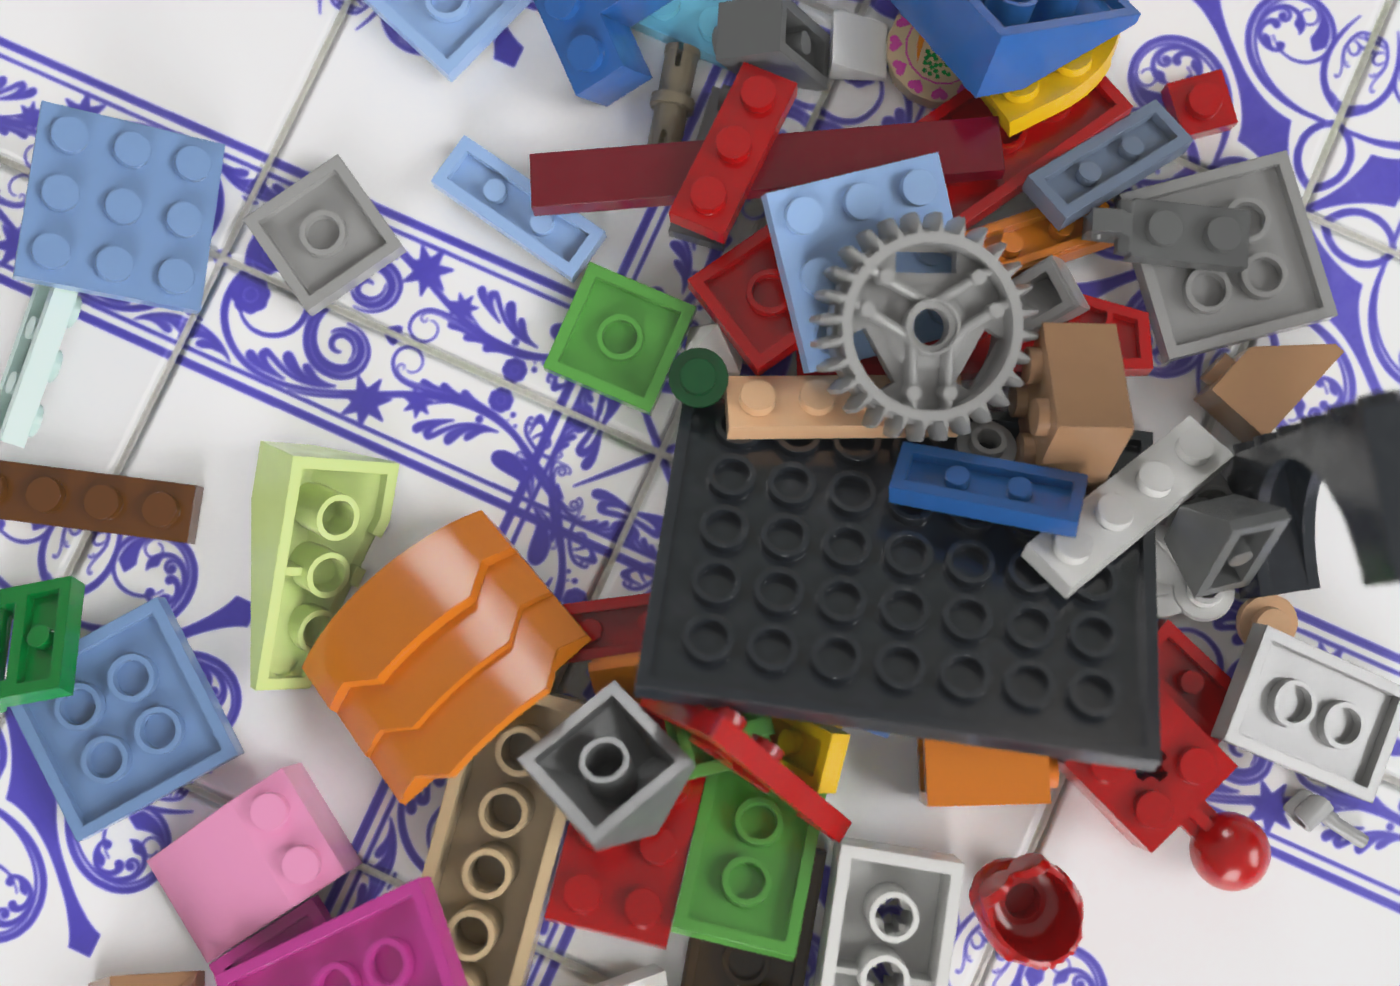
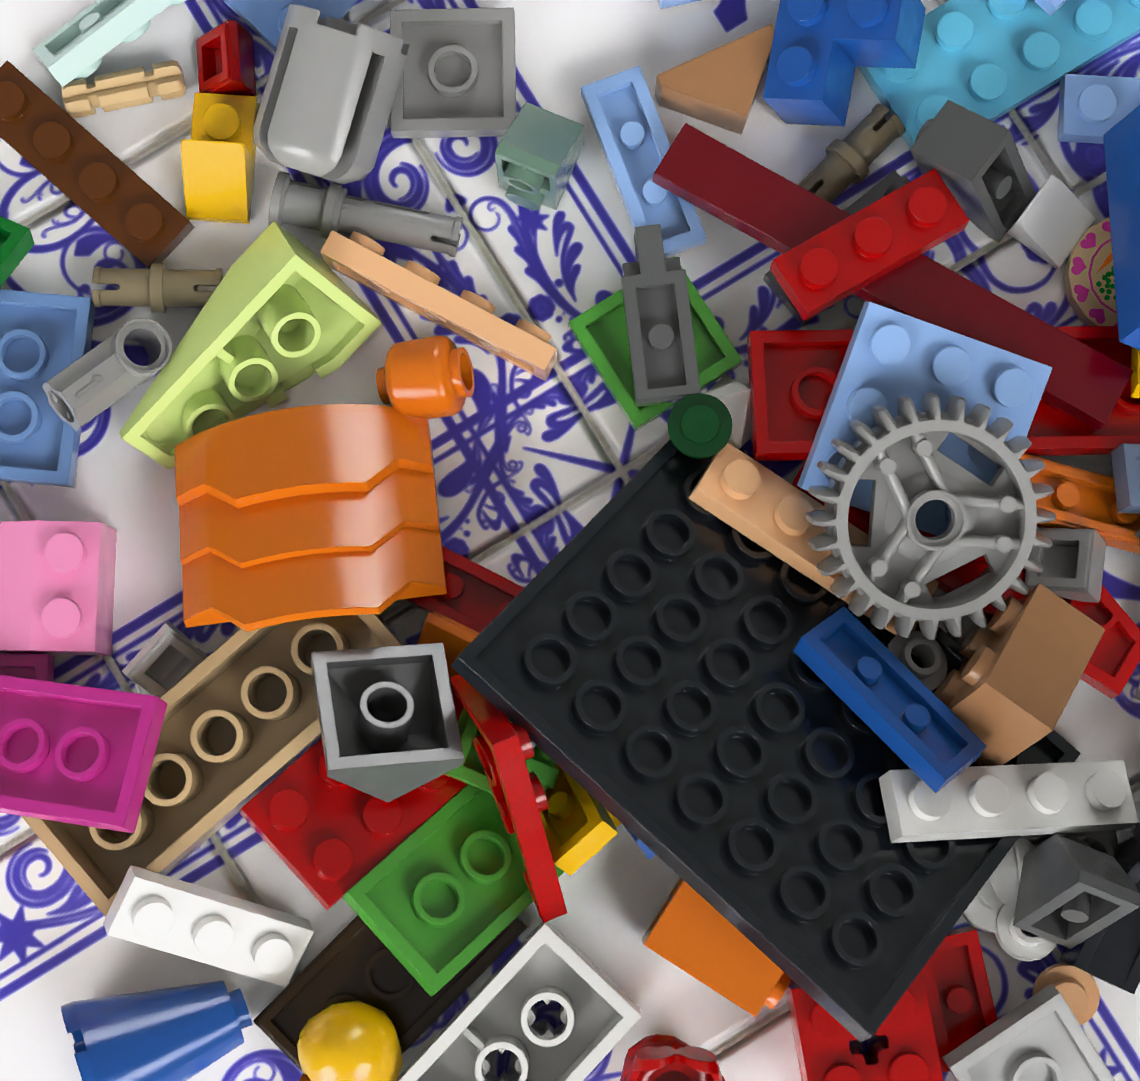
camera: 30 degrees right, 0 degrees up
(75, 417) = (124, 89): none -> tan axle
(142, 343) = (226, 60): none -> red slope
(187, 420) = (220, 158): none -> yellow slope
(202, 555) = (154, 287): none -> dark tan pin
(208, 648) = (106, 372): none -> light grey piece
(237, 314) = (328, 95): none -> light grey cylinder
(305, 402) = (335, 210): none -> light grey pin
(406, 839) = (164, 660): none -> white slope
(411, 420) = (419, 292): none -> light nougat plate
(433, 255) = (538, 157): none -> sand green slope
(462, 482) = (426, 377): none -> orange head
(535, 108) = (719, 83): none -> medium nougat slope
(613, 320) = (658, 323): none -> dark grey hinge

